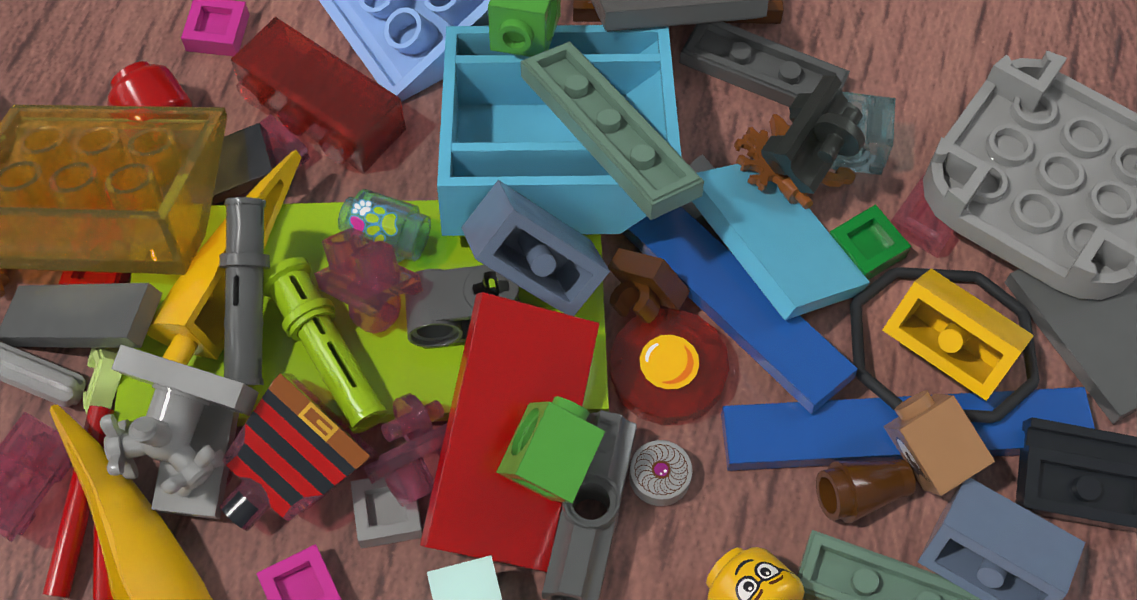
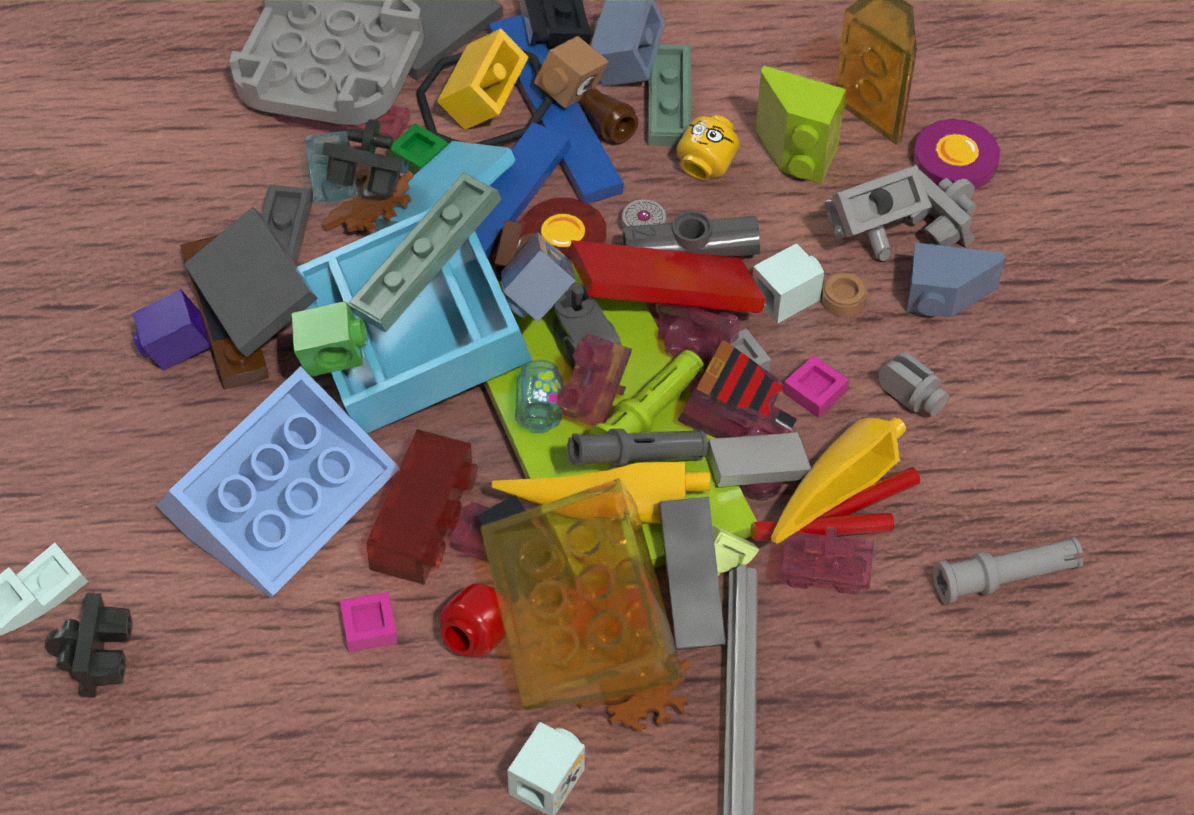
camera: 110 degrees left, 10 degrees down
(170, 419) = (735, 448): light grey piece -> none
(552, 449) = (682, 256): bright green brick -> none

